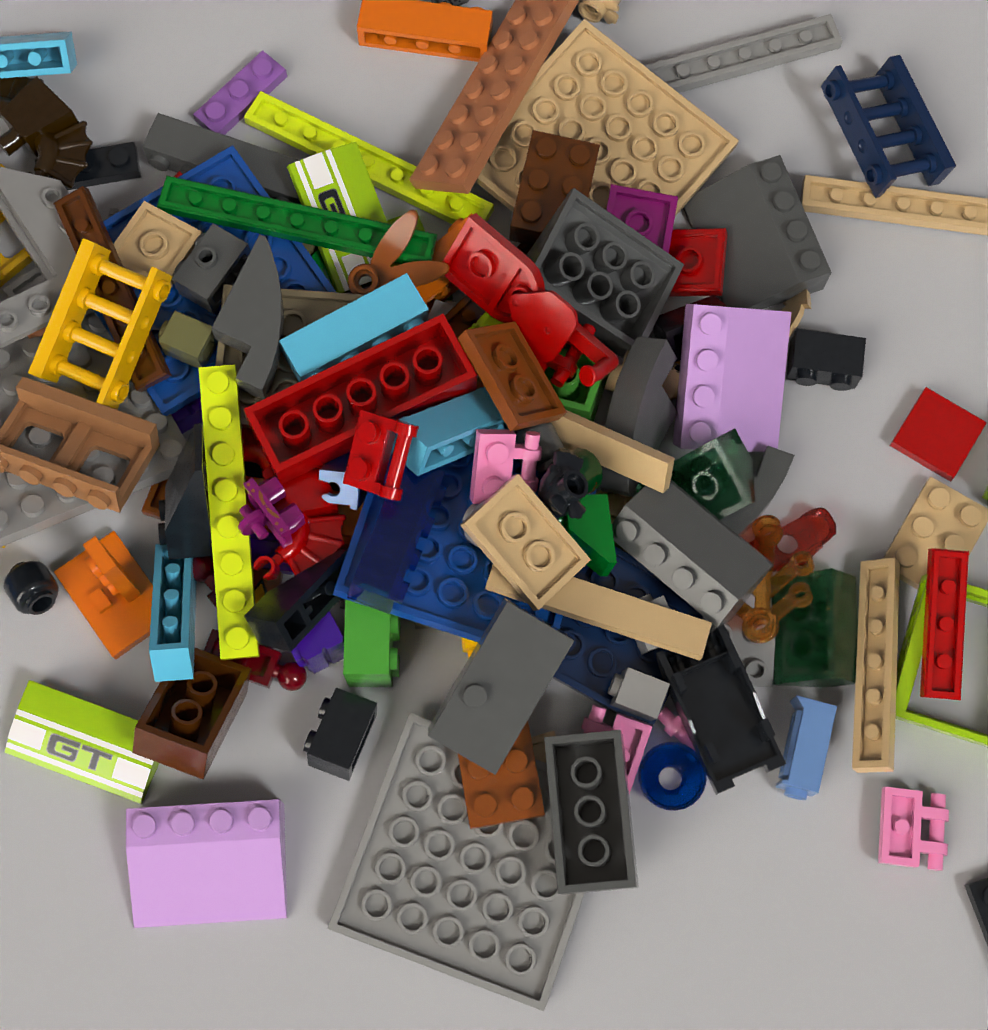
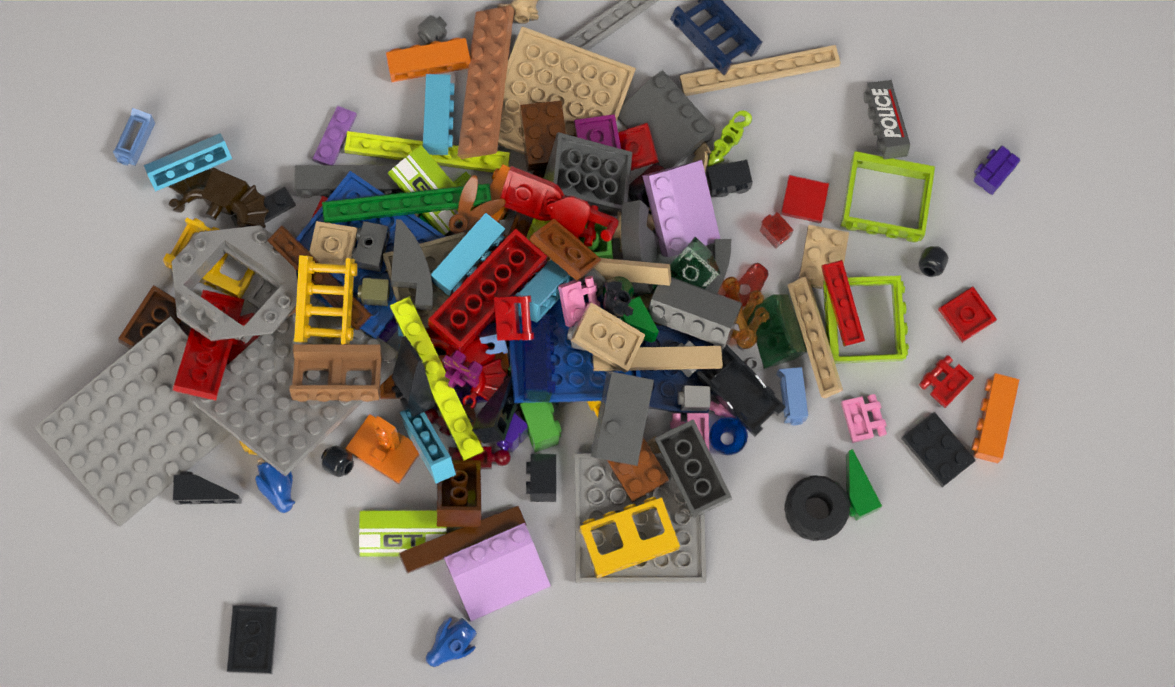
camera: 25 degrees left, 0 degrees up
(84, 954) = (451, 642): none -> blue animal
(167, 788) = (460, 539): none -> reddish brown tile
(403, 110) = (437, 114): none -> medium azure brick
(440, 912) = (634, 549): none -> yellow window
(815, 949) = (831, 494): none -> black tyre
(851, 295) = (729, 137): none -> lime animal
(861, 953) = (859, 489): none -> green slope
(873, 465) = (776, 229): none -> clear red brick

